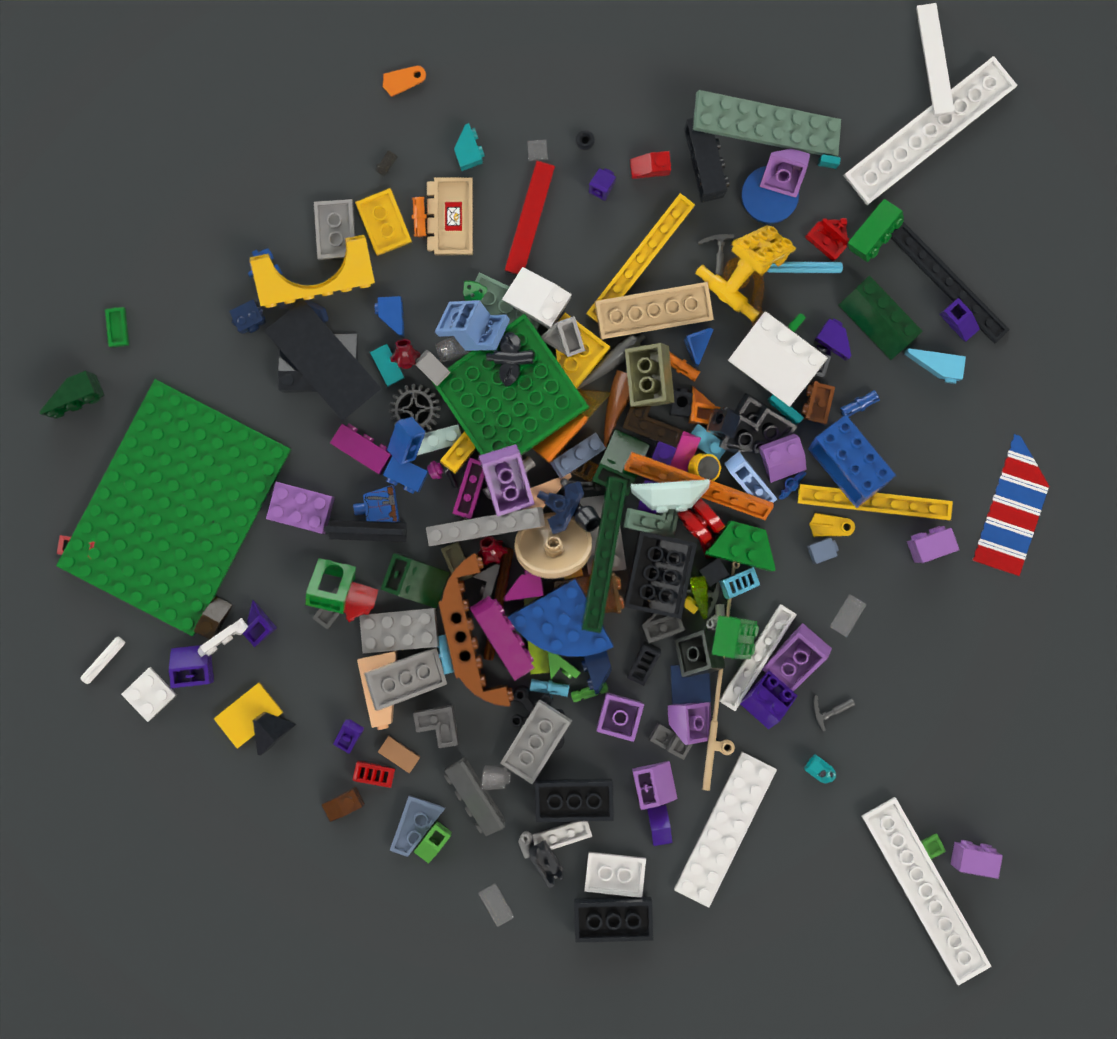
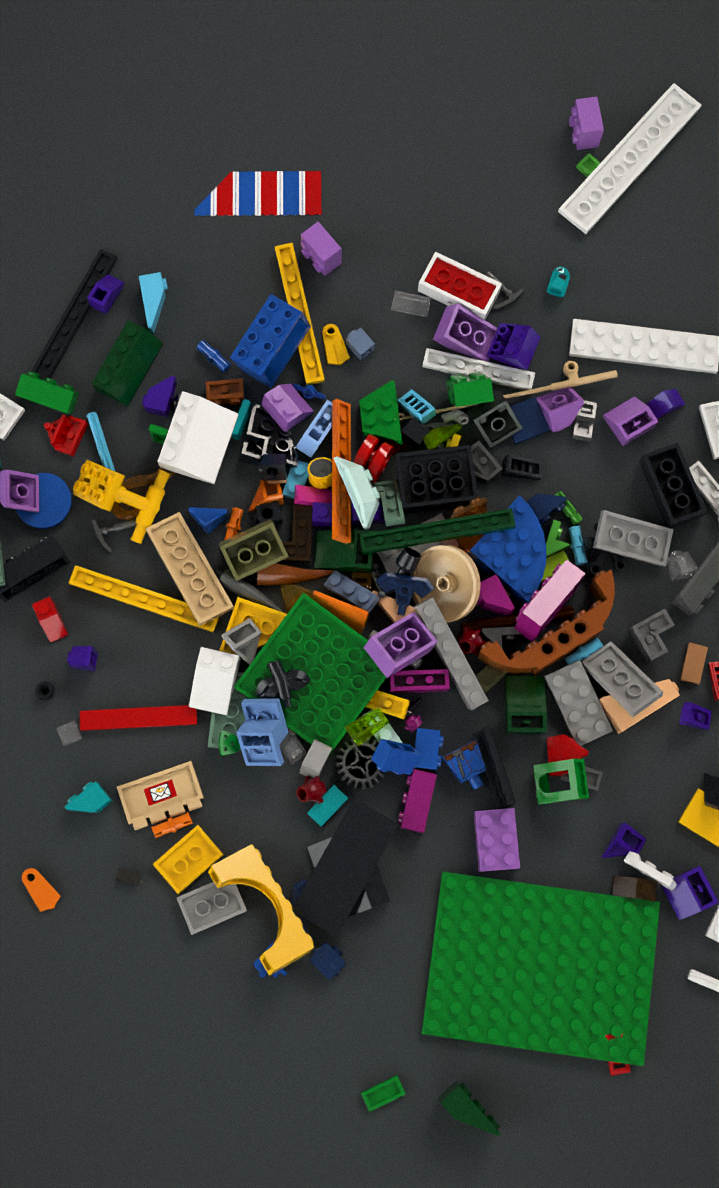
camera: 110 degrees left, 10 degrees down
(391, 313) = (276, 818): blue slope -> none
(450, 423) = (365, 734): none -> clear neon green slope
(620, 717) = (580, 471): medium lavender brick -> none
(847, 668) = (455, 283): none -> brick

